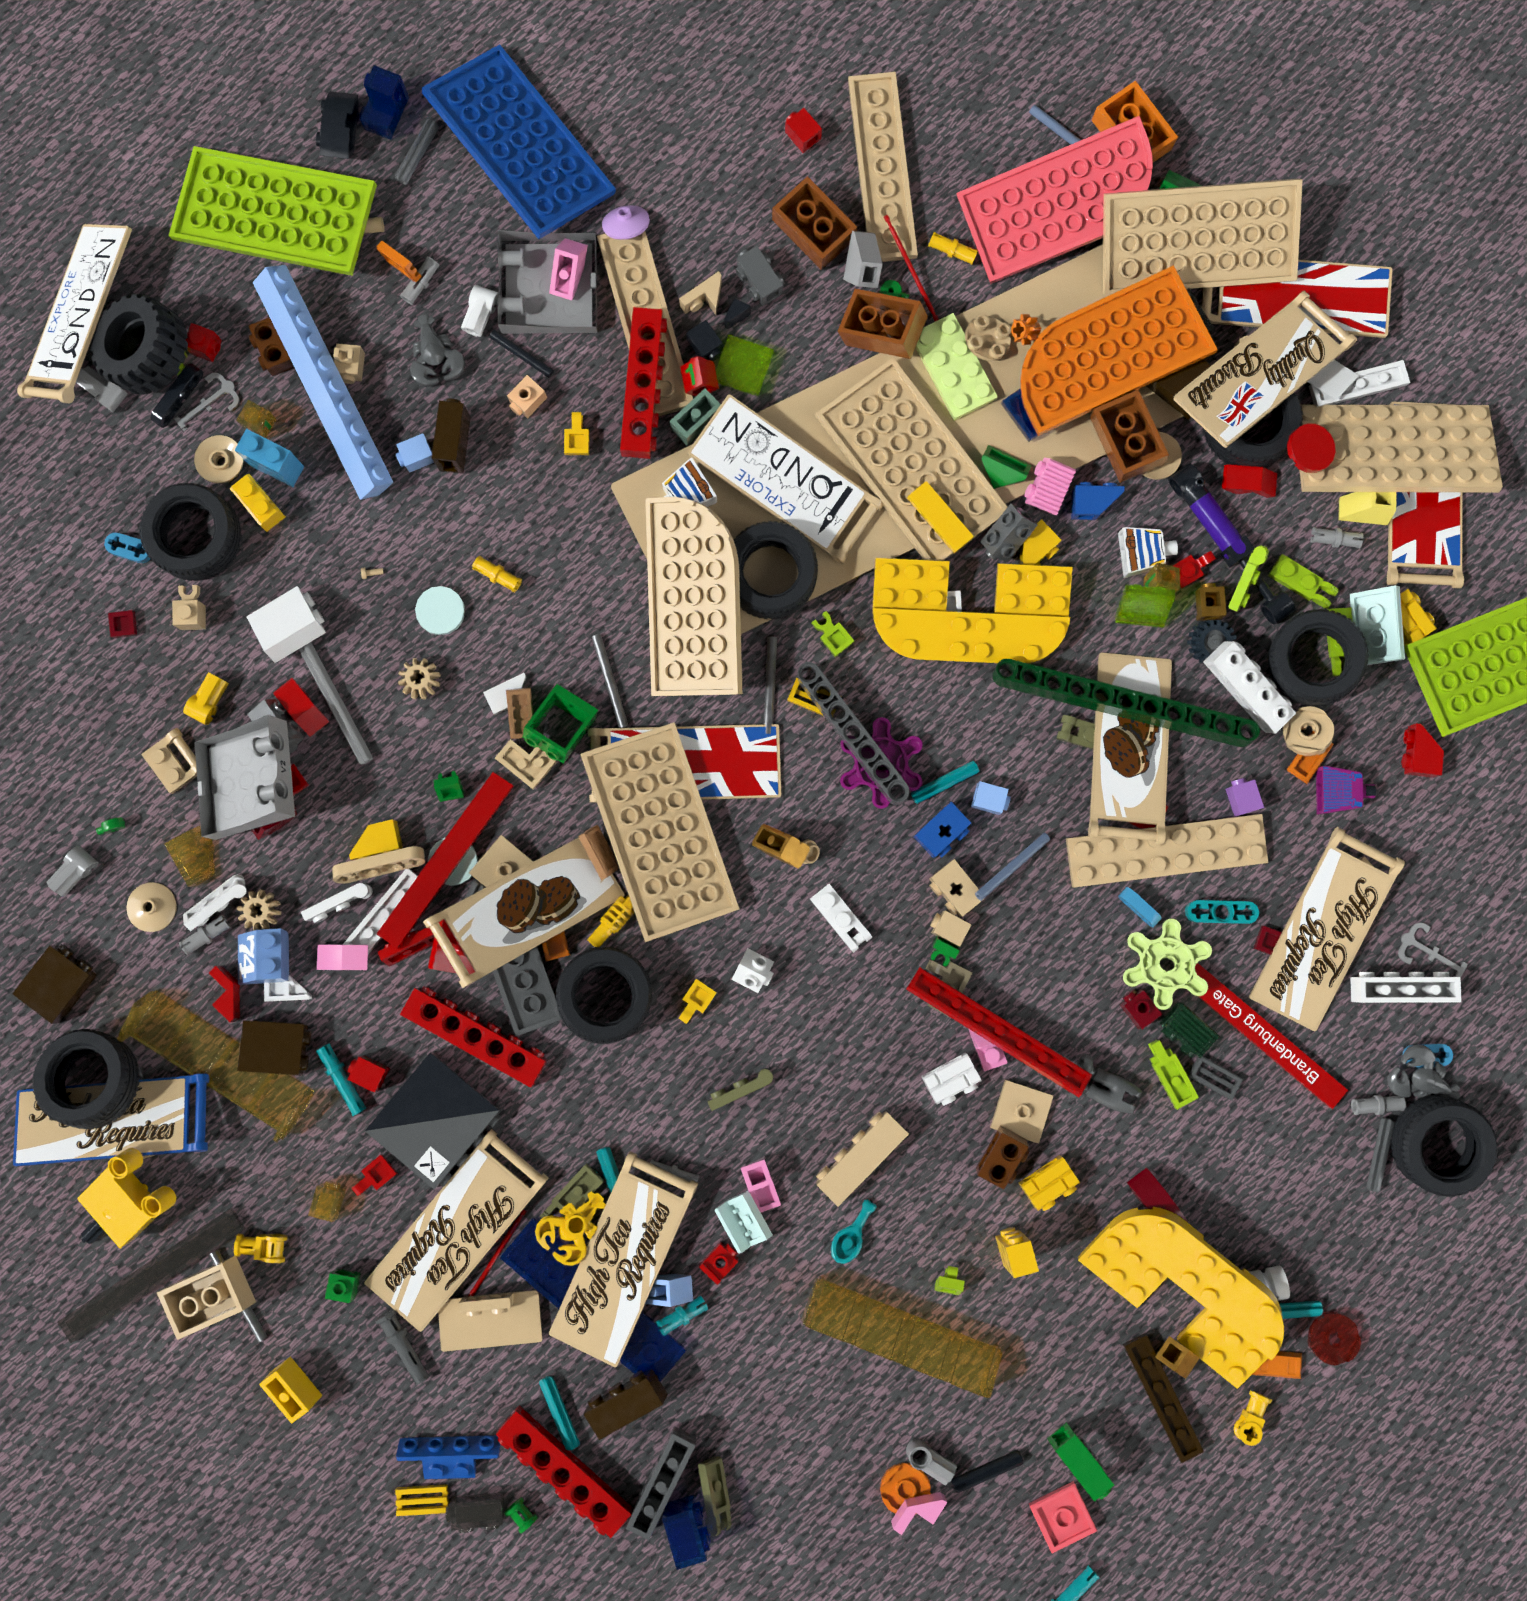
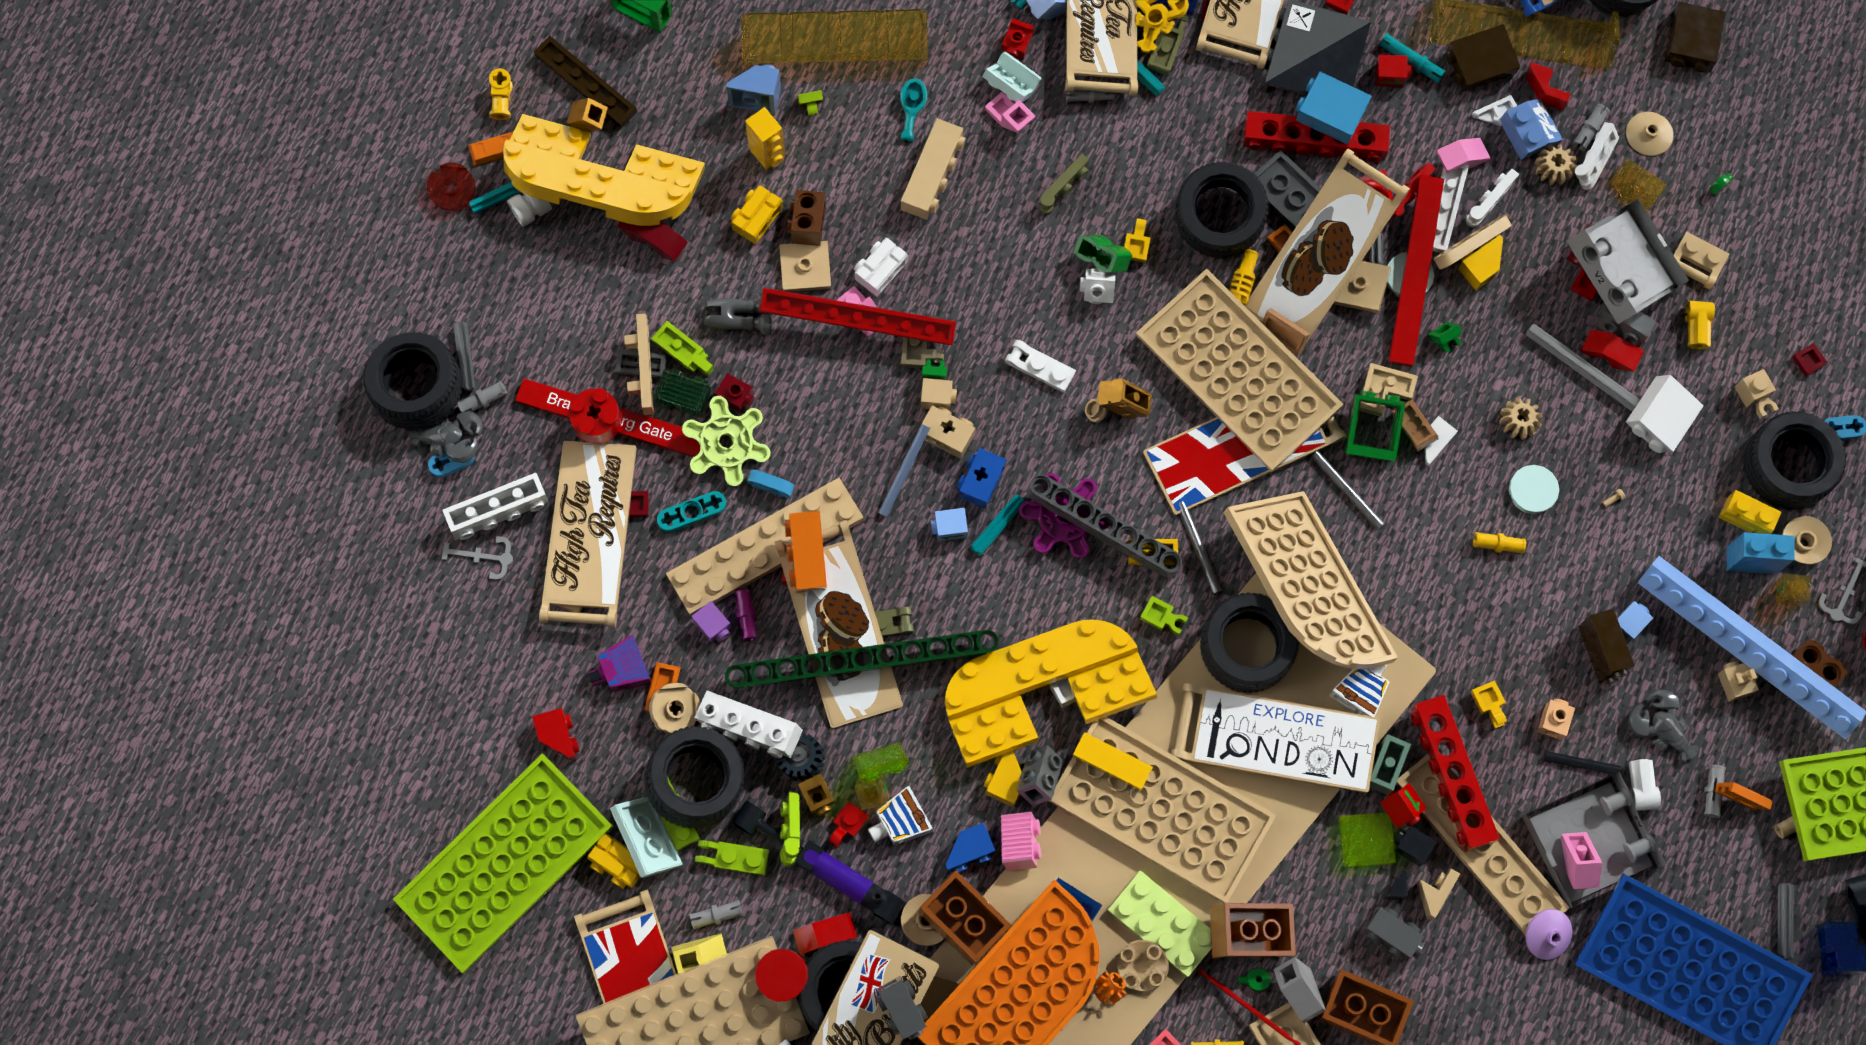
camera: 160 degrees right, 10 degrees down
(76, 866) = (1732, 138): light grey piece -> none
(448, 1052) = (1332, 107): none -> dark azure brick
(736, 999) = (1103, 253): none -> green brick
(1000, 1314) = (755, 89): none -> medium blue slope
(1004, 468) = (1071, 842): green slope -> none
(1145, 812) = (806, 551): none -> orange brick
(1209, 792) = (746, 615): none -> magenta pin
(1210, 1092) = (641, 342): none -> tan hinge
(1224, 369) = (906, 1016): none -> dark grey brick
(1297, 1042) = (585, 406): none -> red brick

